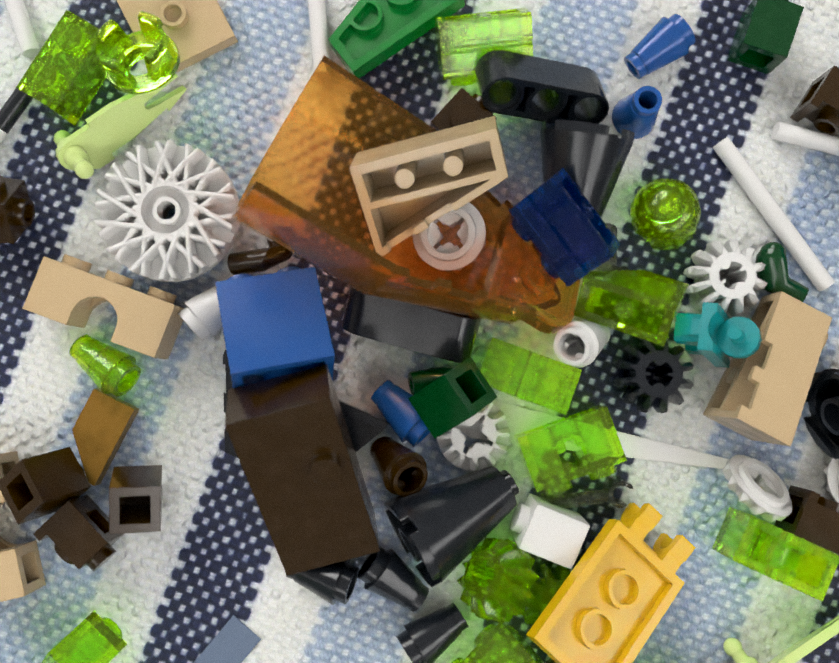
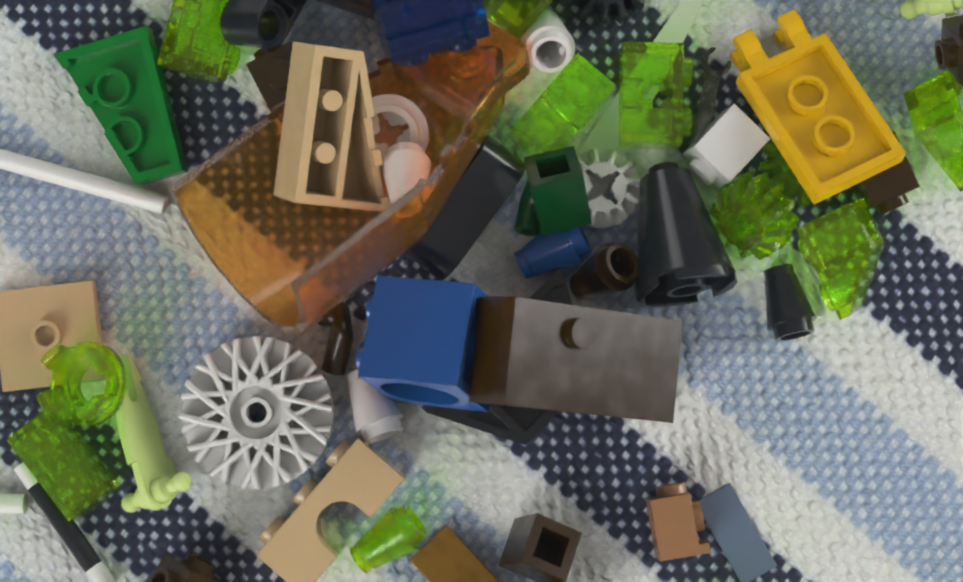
camera: 65 degrees left, 0 degrees up
(203, 609) = (675, 523): none -> medium nougat brick
(330, 582) = (695, 387): black cone -> none
(392, 579) = (716, 323): black cone -> none
(422, 255) = (403, 167): none -> white cone

